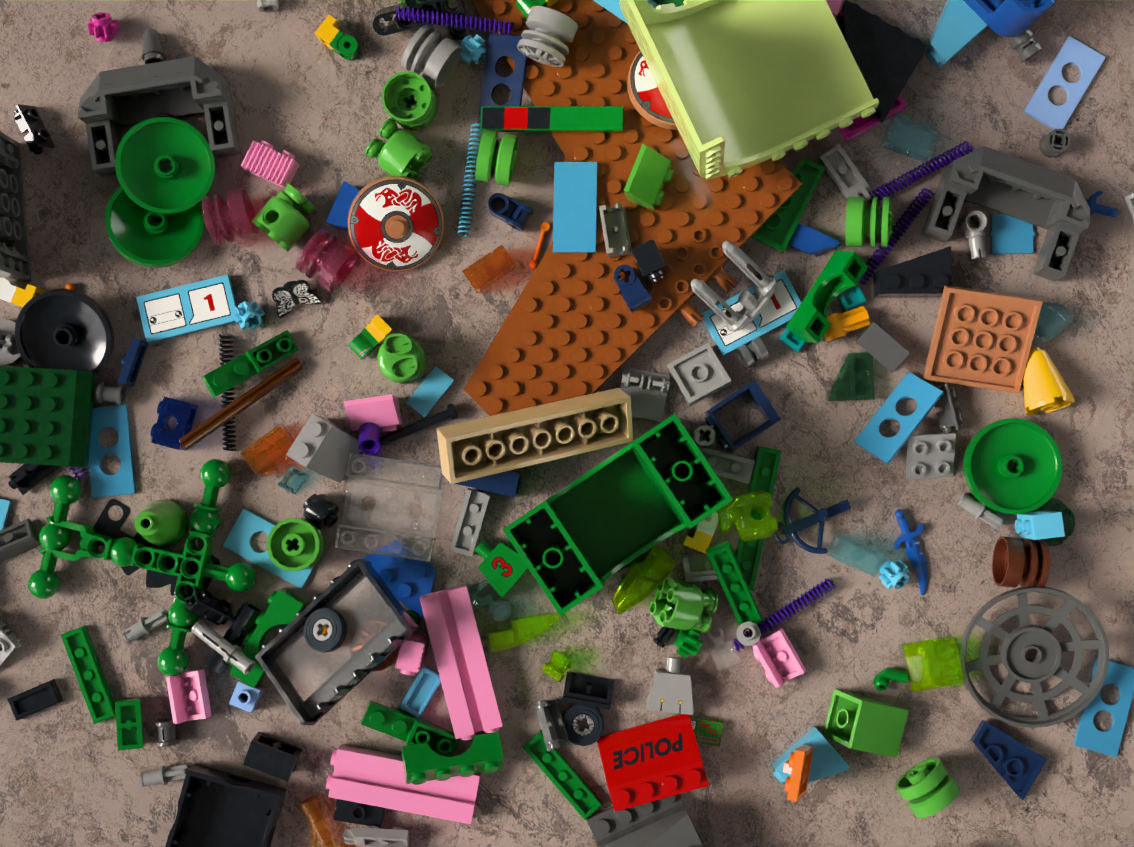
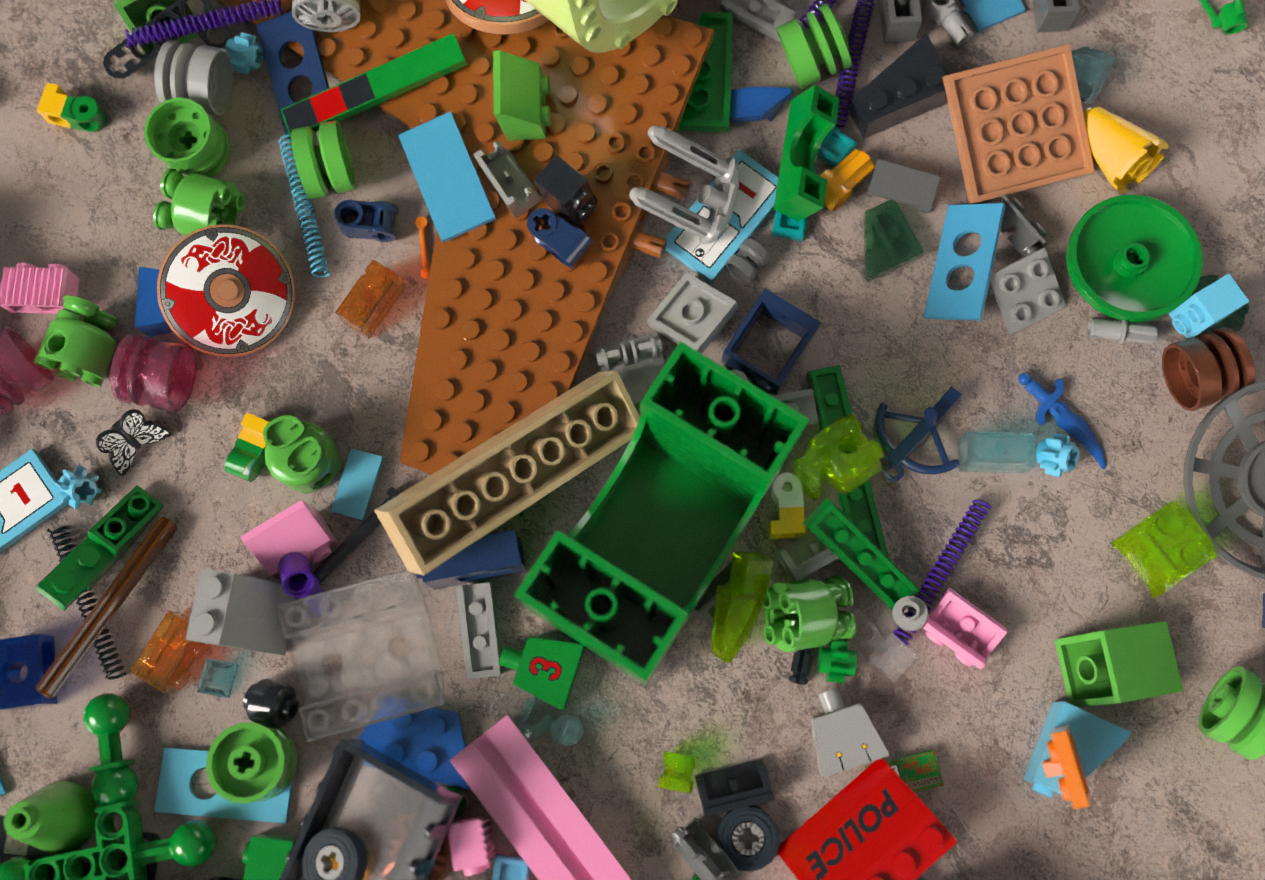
camera: 25 degrees left, 10 degrees down
(522, 630) = (609, 745): clear neon green slope -> none
(888, 675) = (1114, 590): green arm -> none

